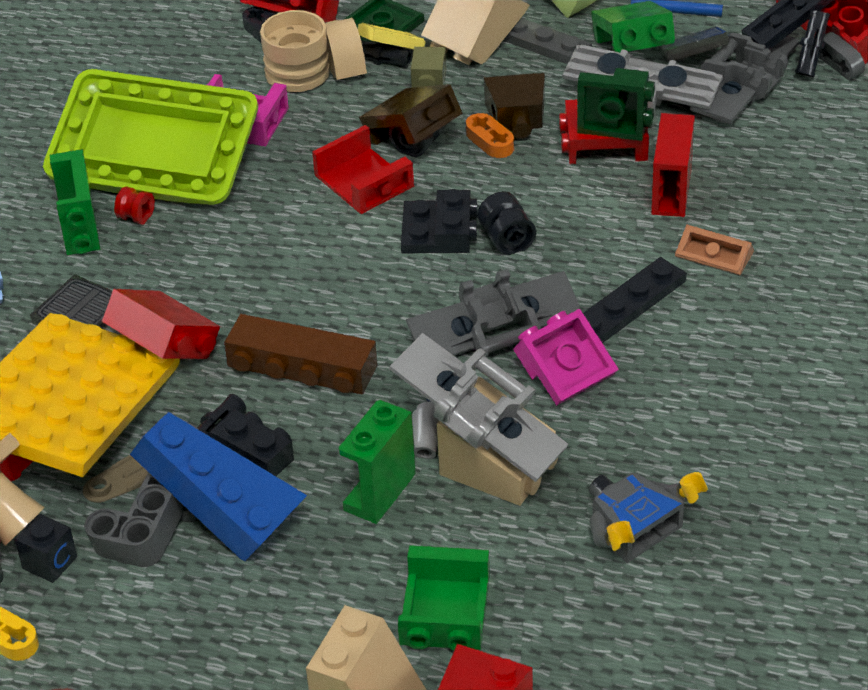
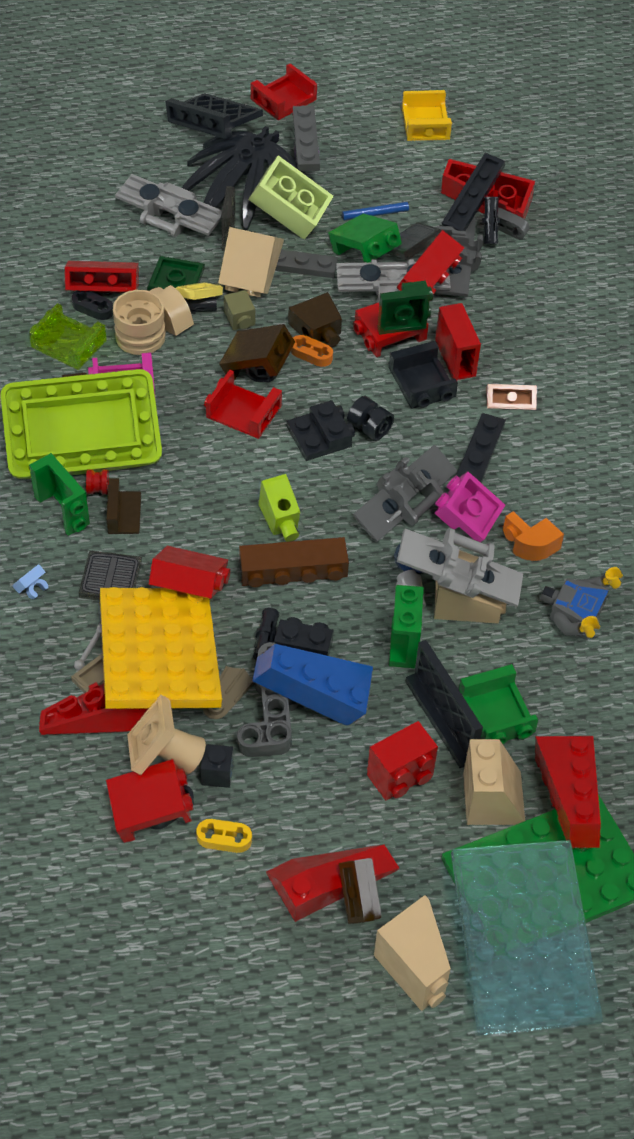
camera: 30 degrees left, 10 degrees up
(141, 241) = (123, 509): none -> dark brown panel
(208, 49) = (66, 338): none -> clear neon green panel
(265, 615) = (402, 761): none -> red brick
(321, 300) = (280, 507): none -> lime torso
(371, 558) = (443, 703): none -> black fence
(609, 194) = (421, 375): none -> black panel
(628, 422) = (532, 542): none -> orange brick
(690, 69) = (435, 262): none -> red brick

